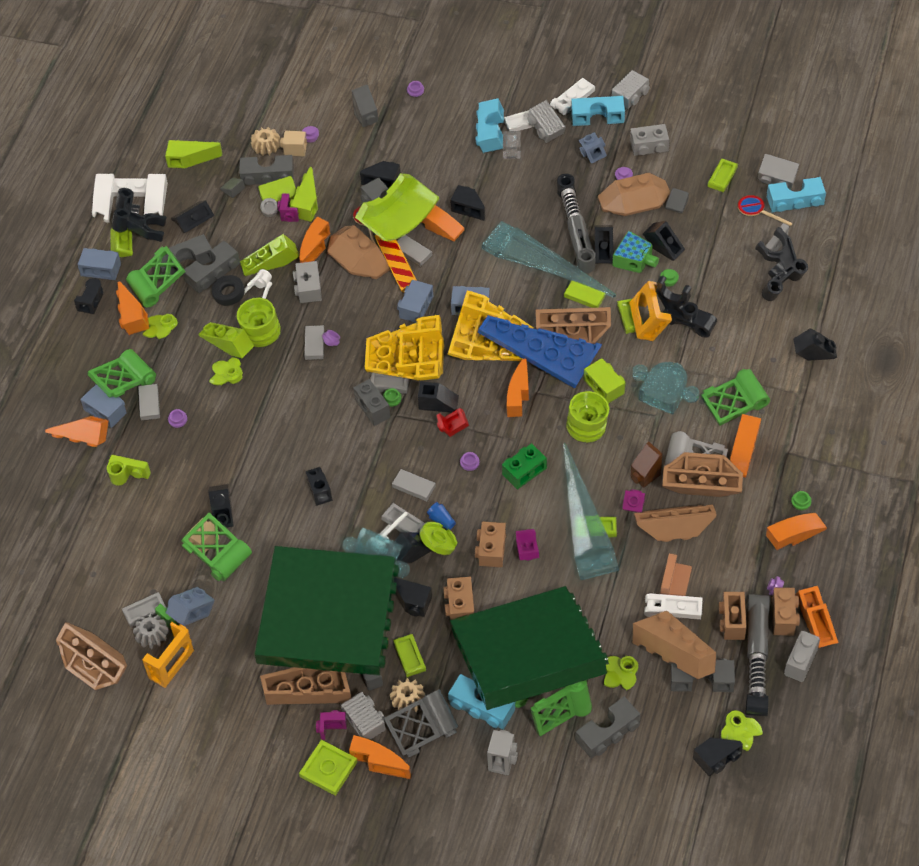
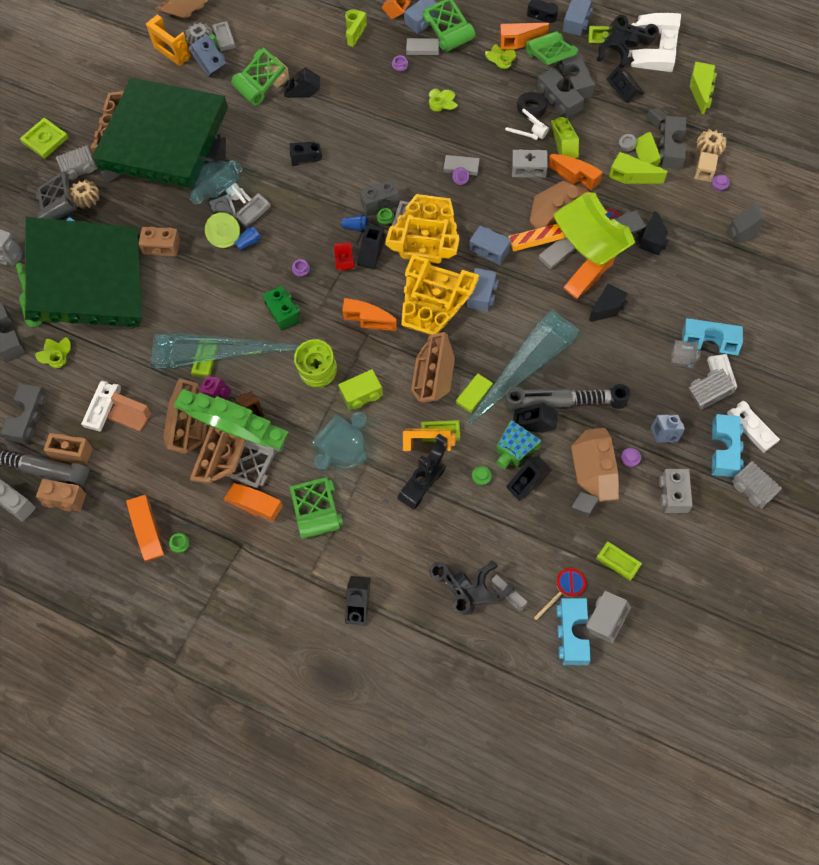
camera: 100 degrees right, 10 degrees up
(229, 339) = (474, 100): lime slope -> none
(259, 321) = (483, 118): lime wheel -> none
(287, 213) = (626, 149): magenta bracket -> none
(330, 720) = (78, 138): magenta bracket -> none
(379, 758) = (37, 170): orange slope -> none
(405, 420) = (355, 222): none -> blue cone
(409, 655) = (124, 203): lime tile -> none
(413, 485) = (288, 223): light grey tile -> none
(413, 597) = (173, 207): black slope -> none
(415, 89) = (775, 278): medium lavender plate -> none
(492, 544) = (206, 271): medium nougat brick -> none
(527, 544) = (195, 298): magenta bracket -> none
(546, 349) = (401, 347): blue wing -> none
(672, 469) = (231, 419): none -> bright green piece
(675, 644) = (48, 389): medium nougat wedge -> none
(774, 583) = (92, 495): medium lavender plate -> none
(817, 616) = (49, 524): orange slope -> none

